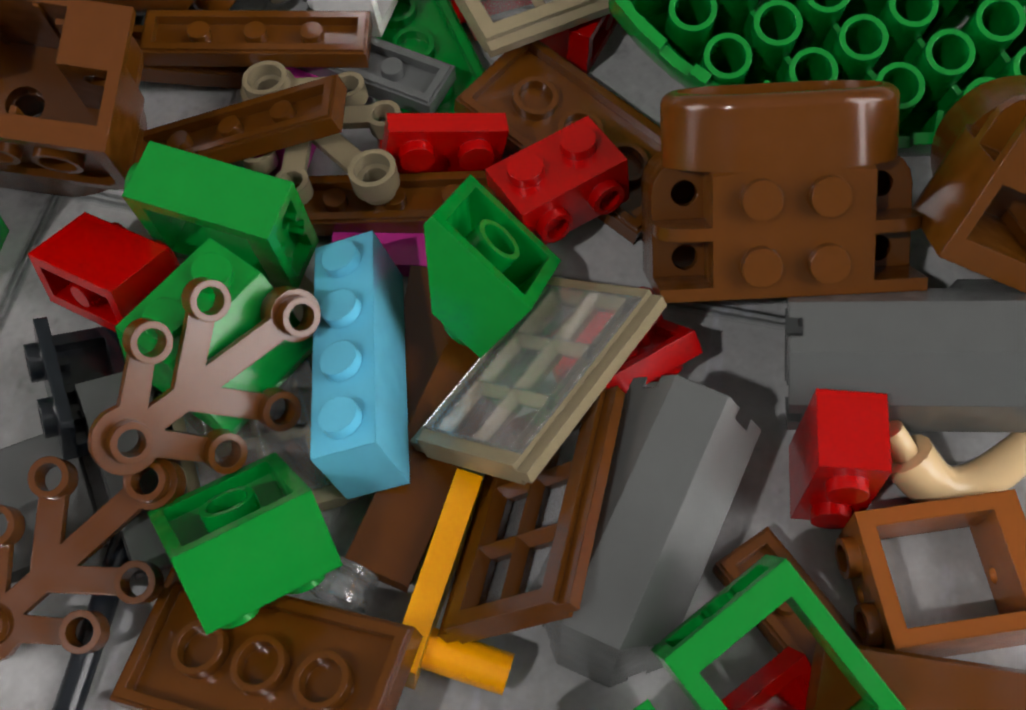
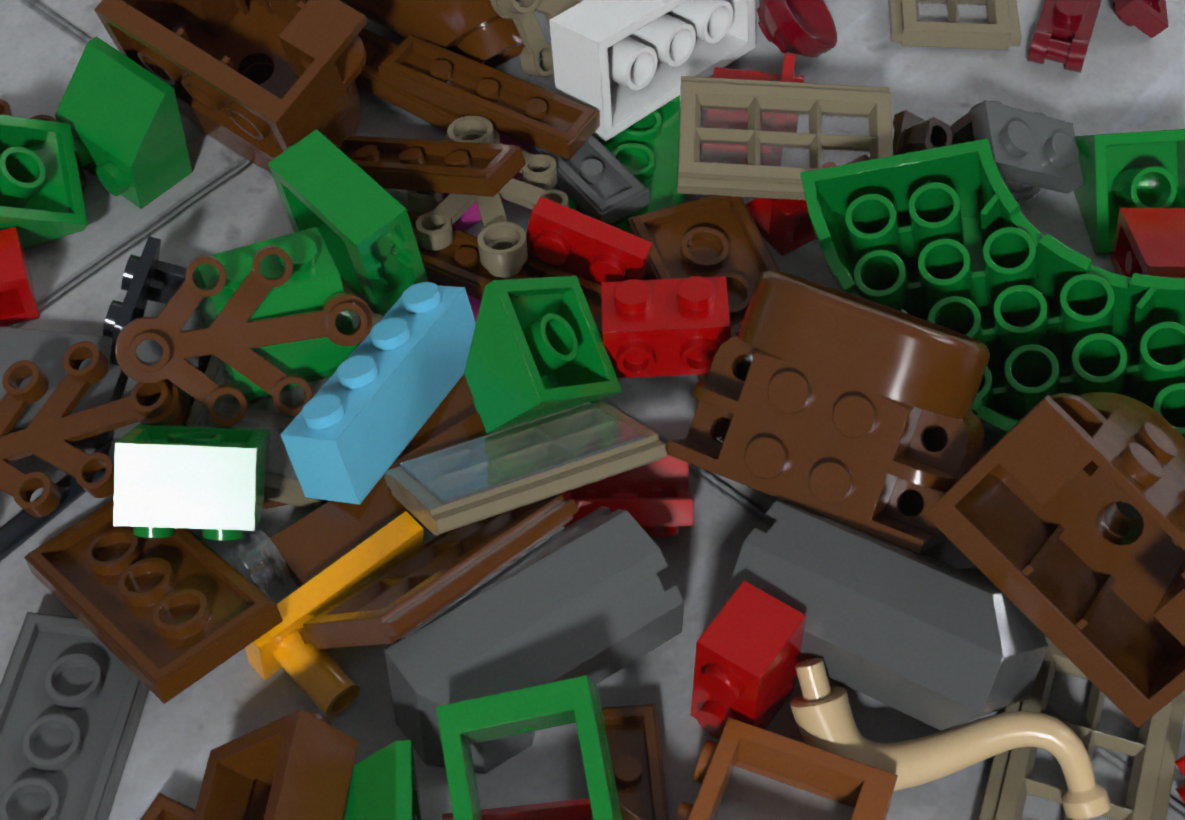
camera: 30 degrees right, 10 degrees down
(101, 268) = (229, 216): red brick -> none

